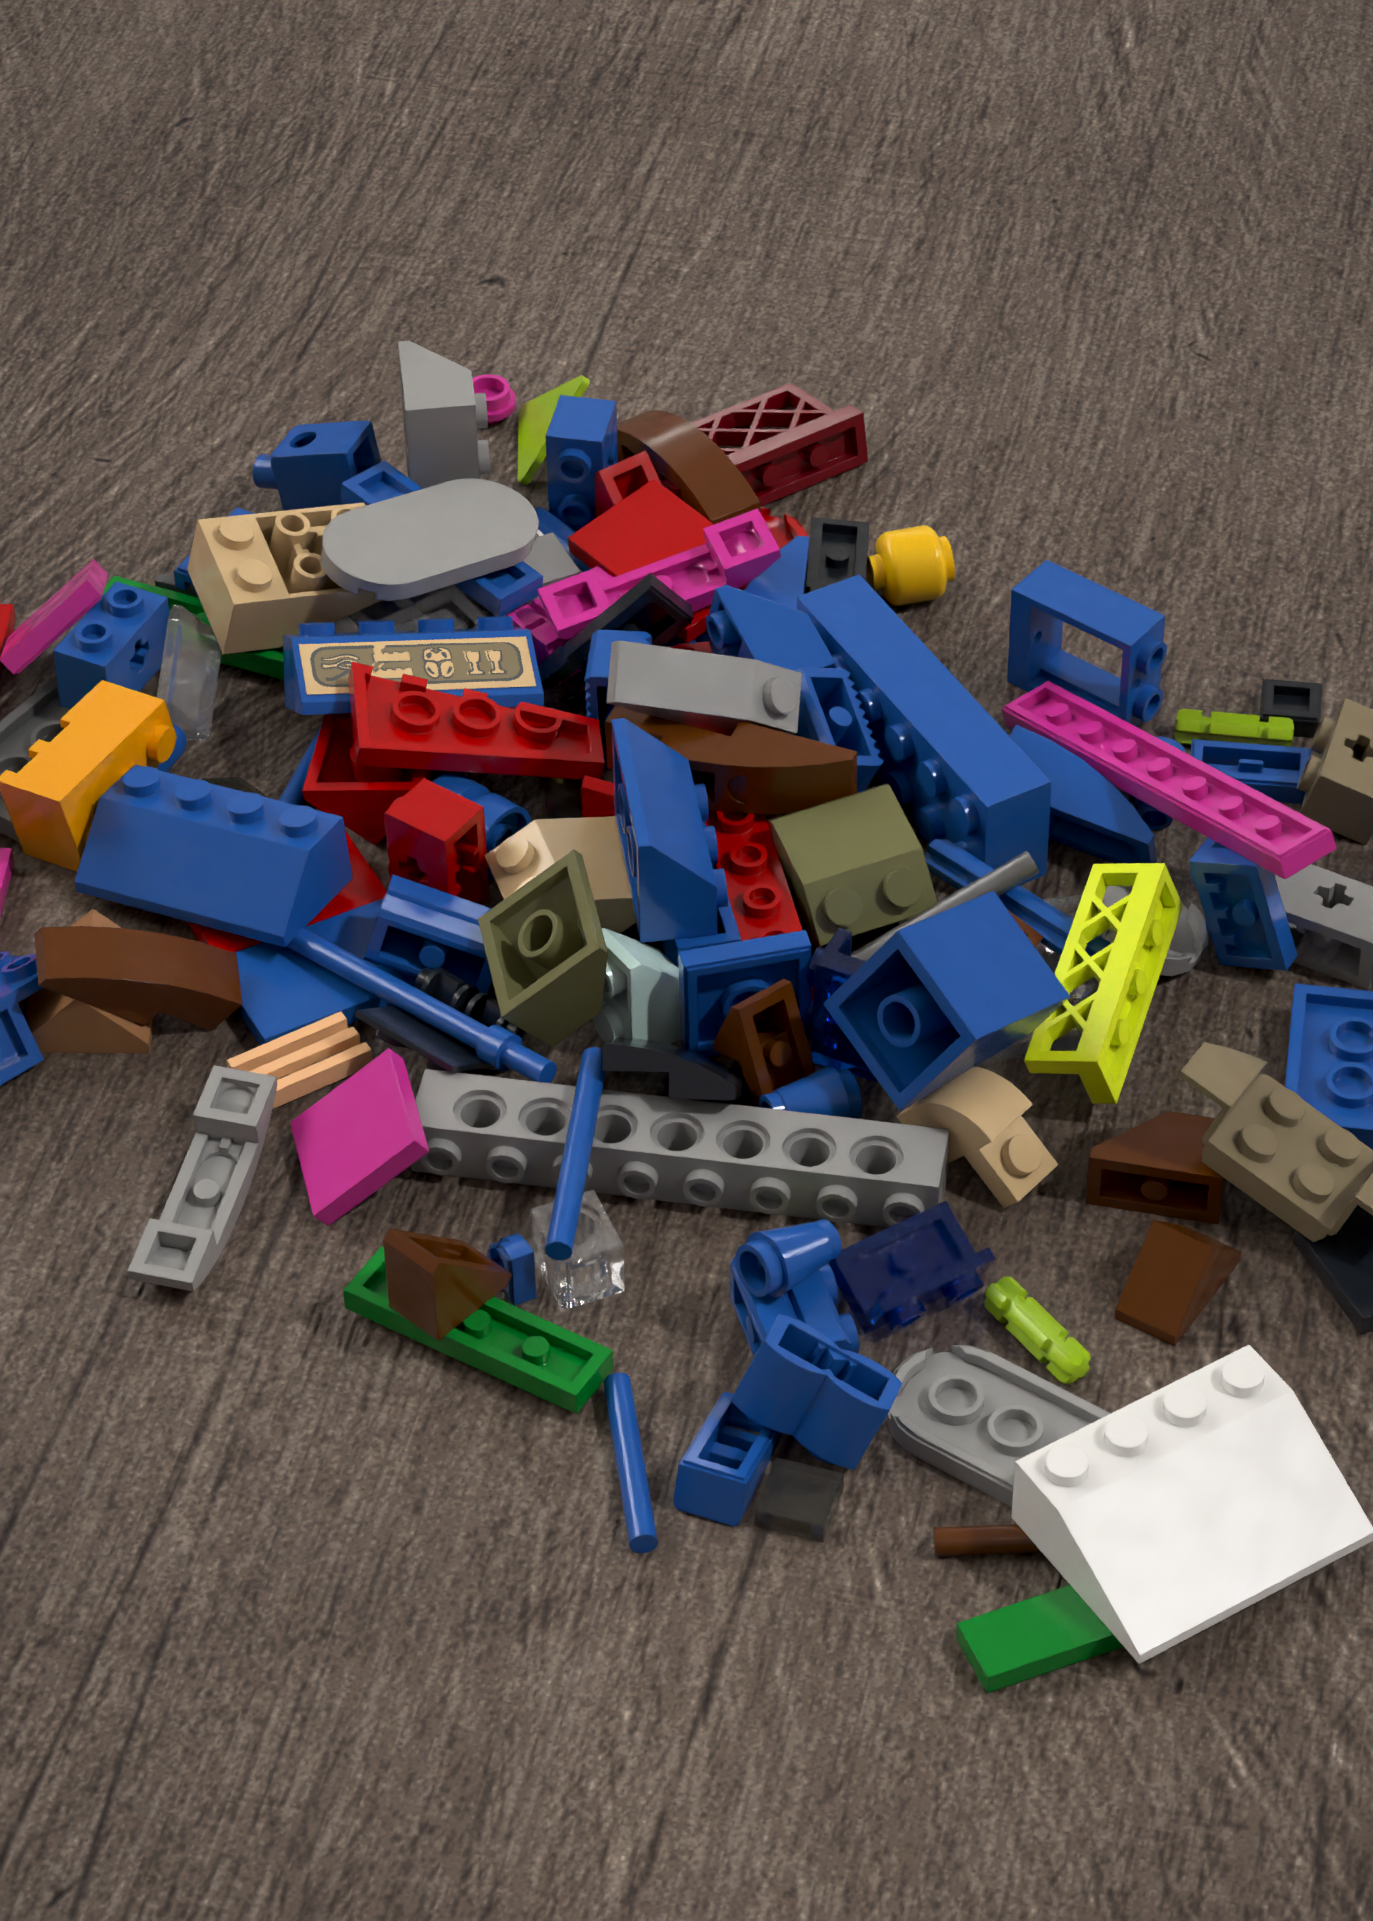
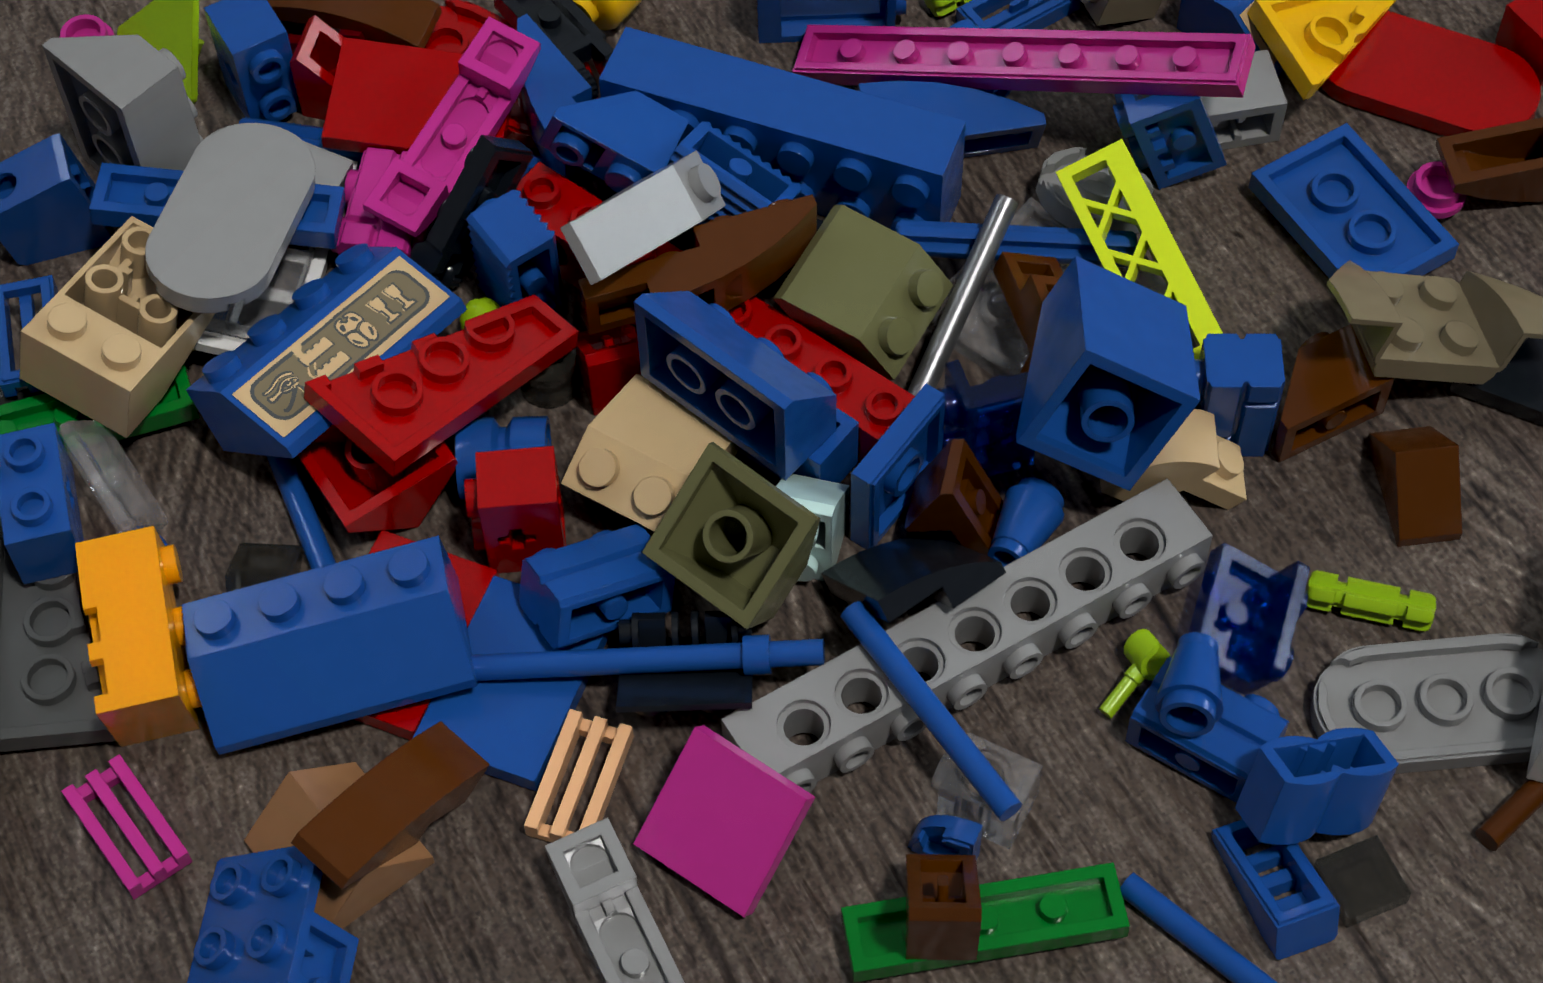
camera: 40 degrees left, 15 degrees up
(1074, 1101) = (1242, 387): none -> blue brick

